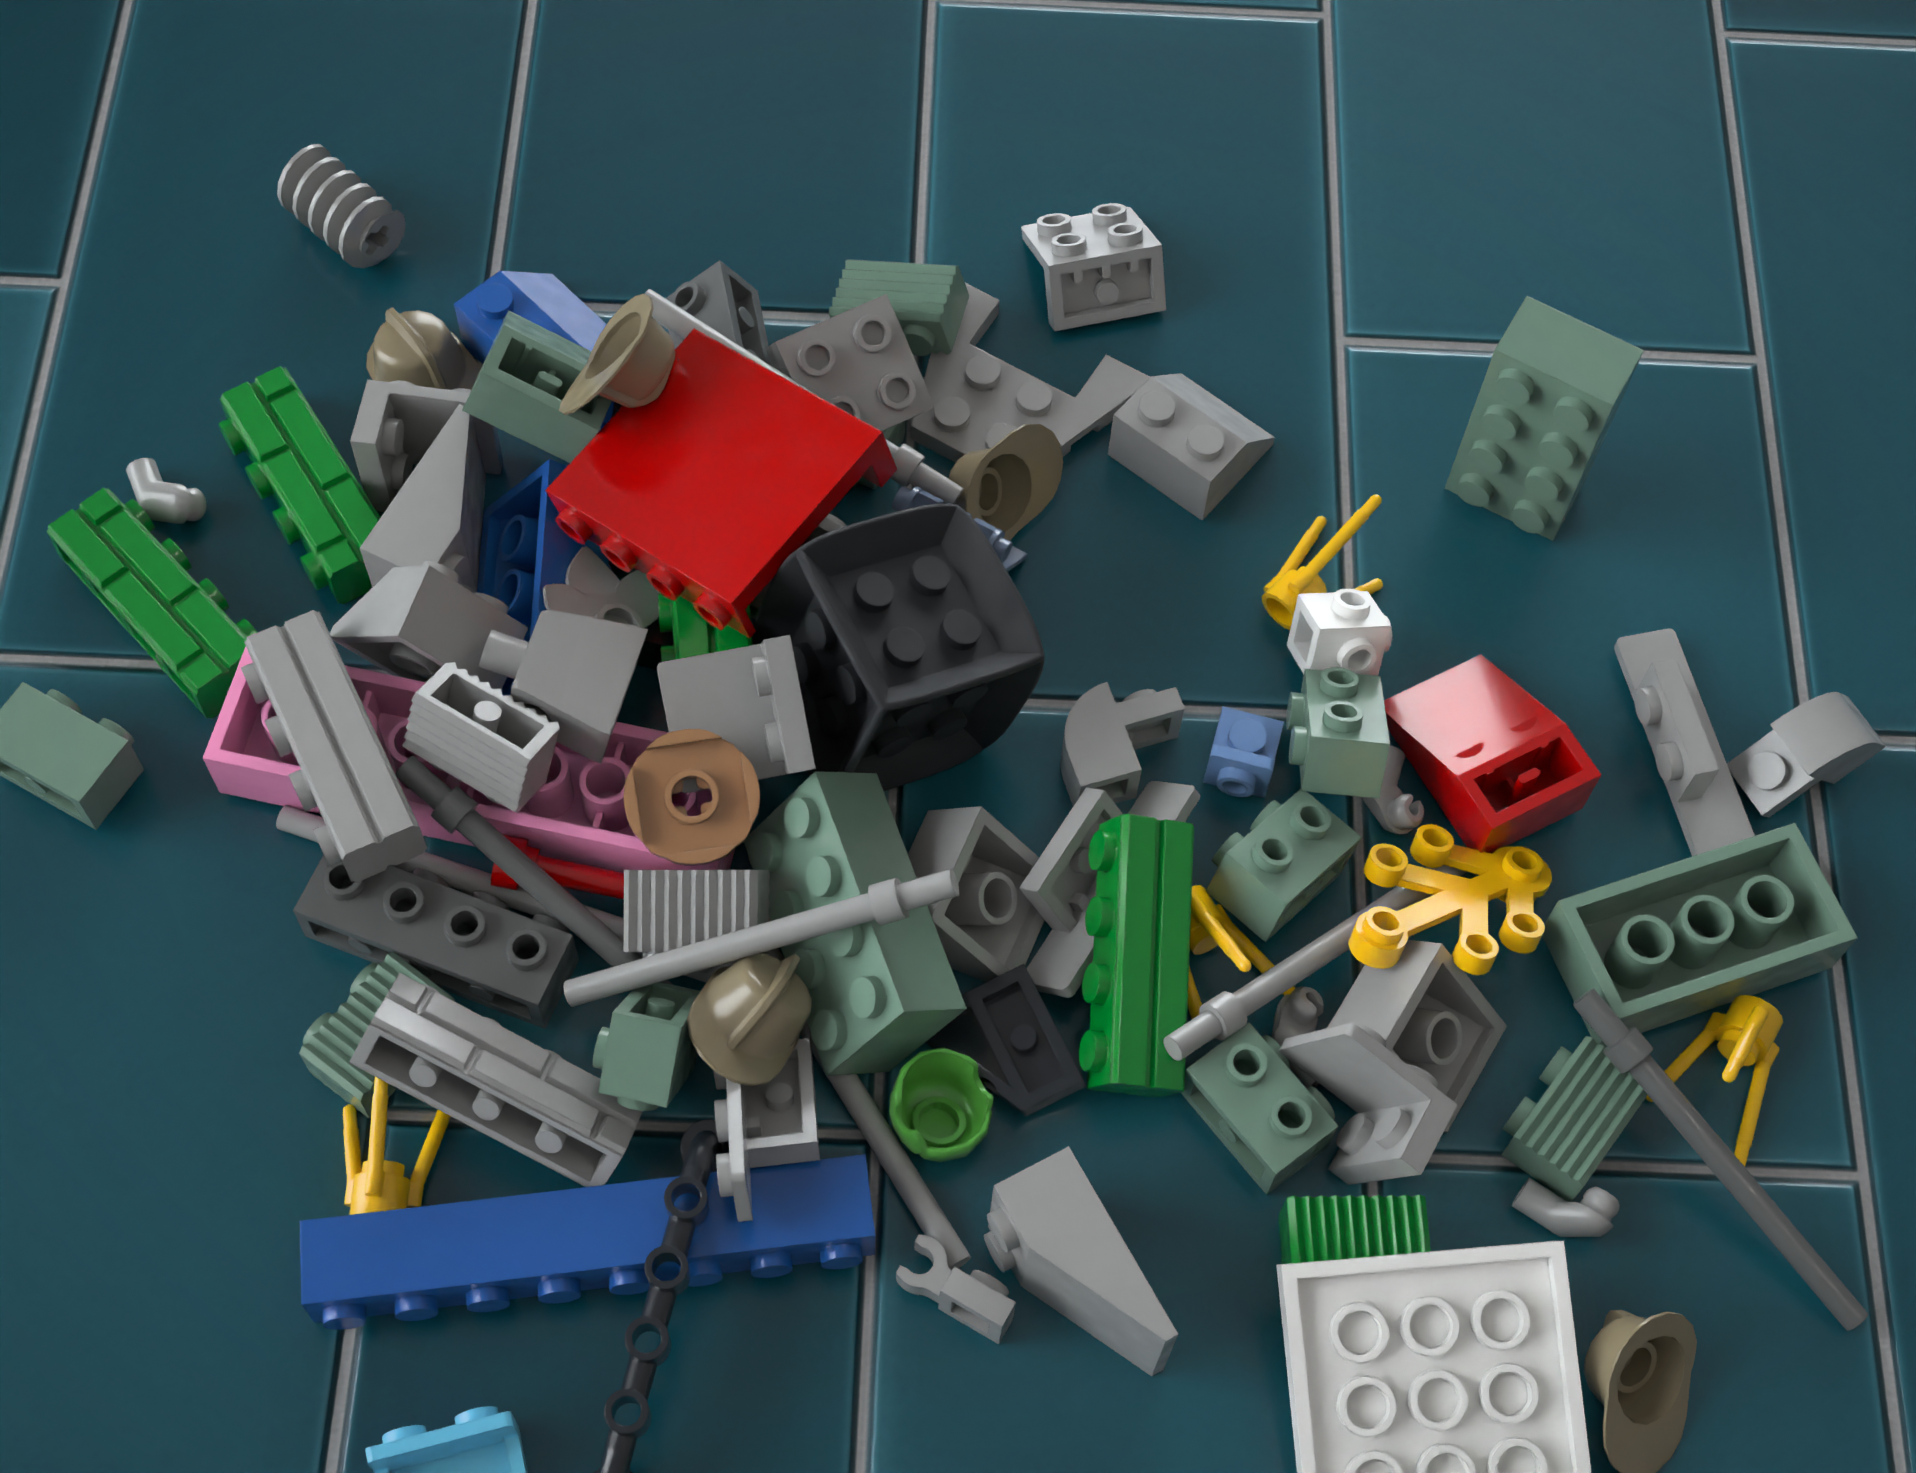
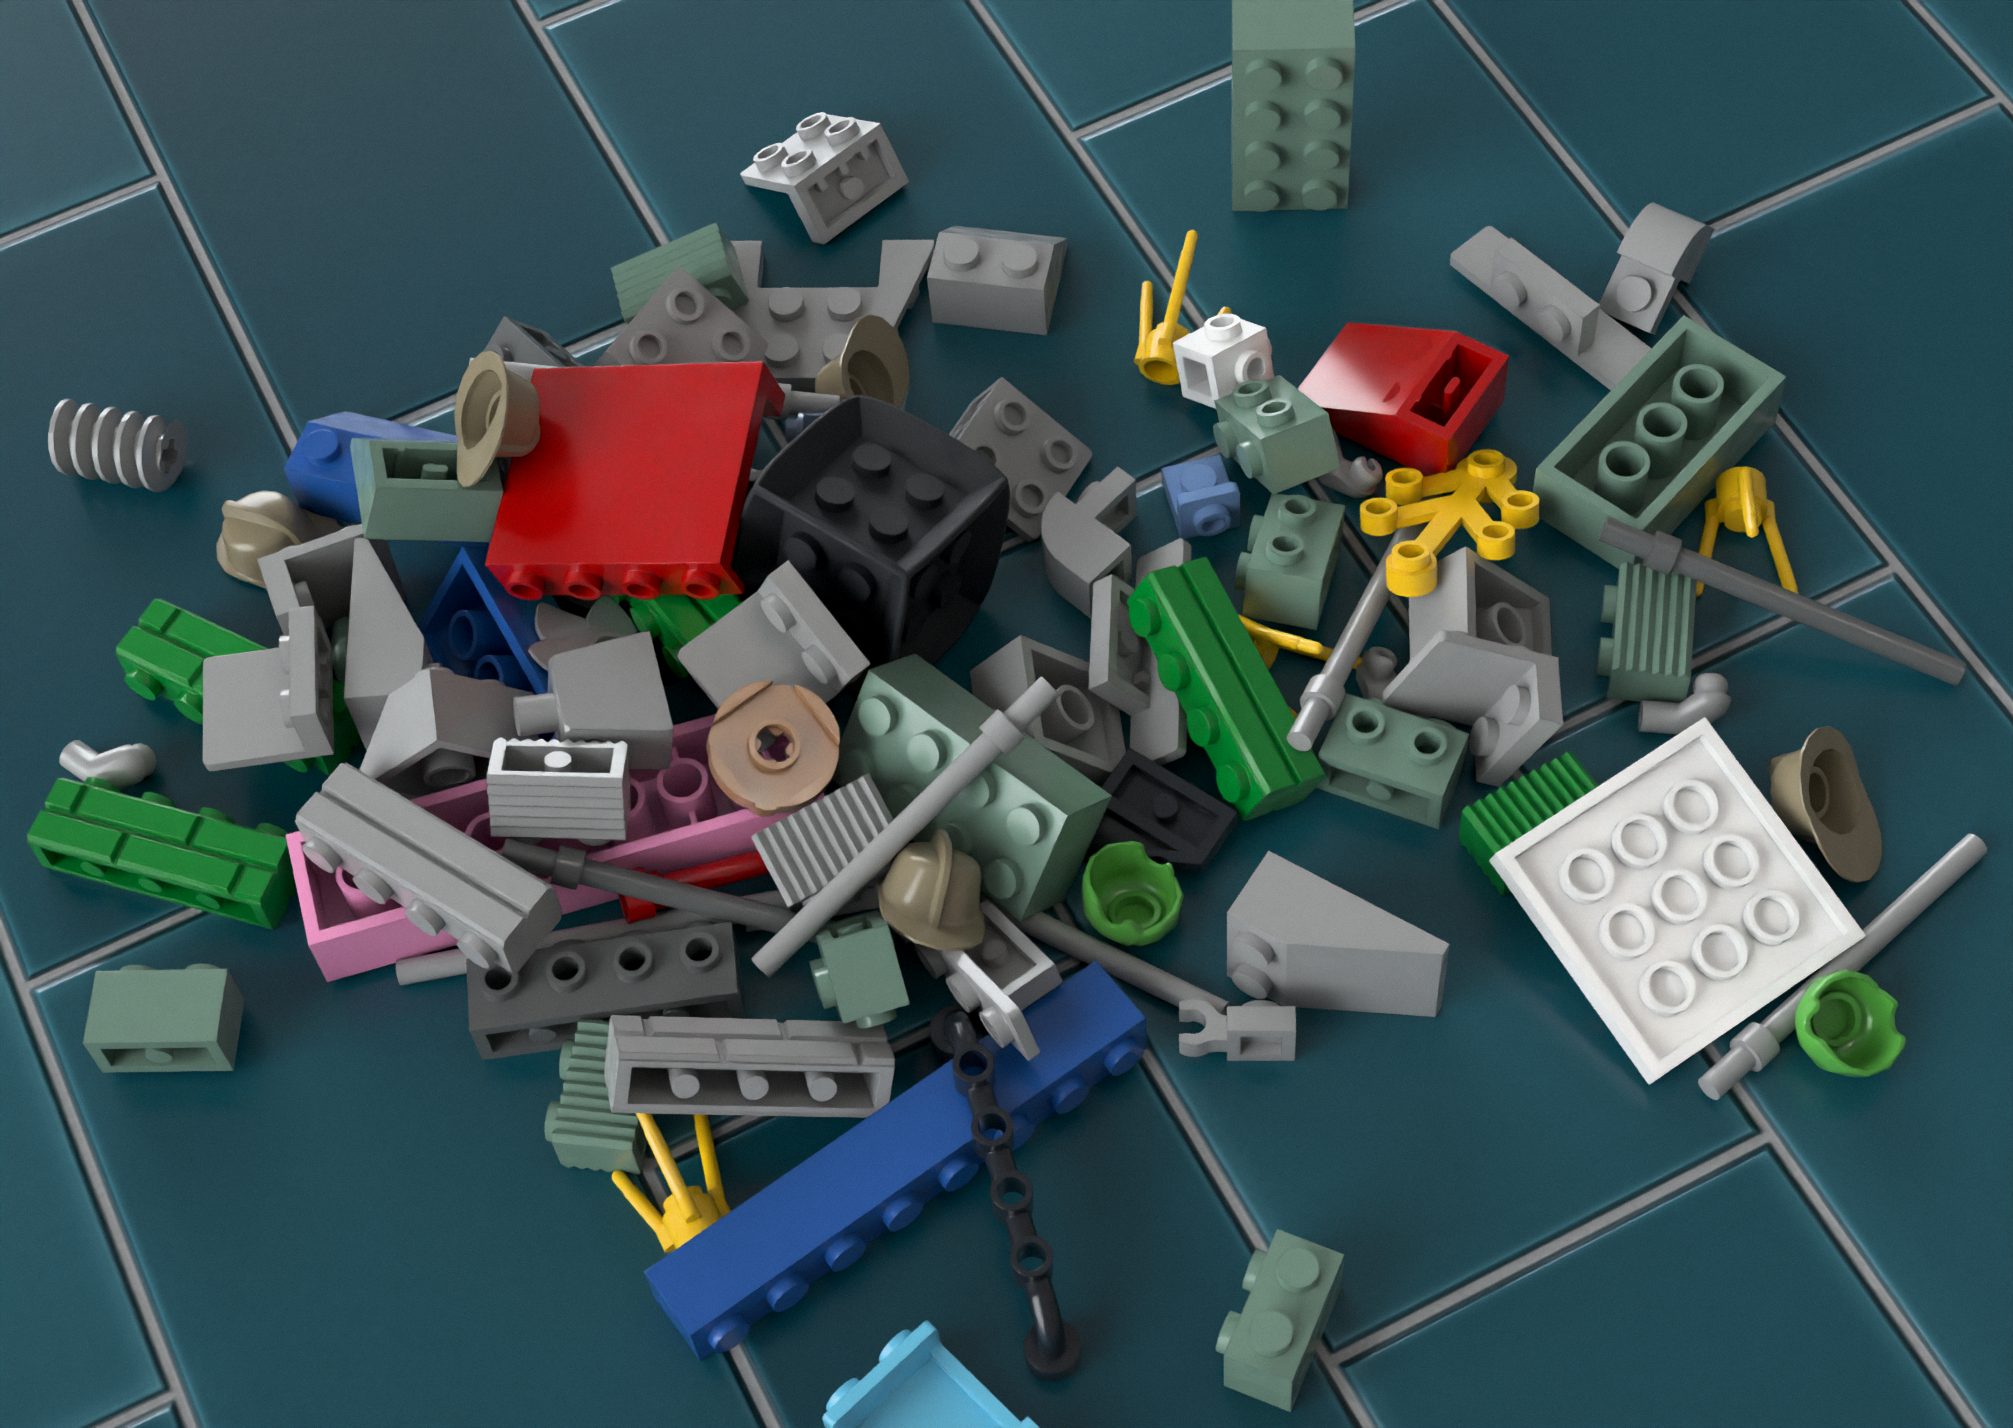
camera: 20 degrees left, 5 degrees down
(310, 513) = (271, 700): none -> light grey bracket
(1094, 624) = (1026, 448): none -> light grey bracket

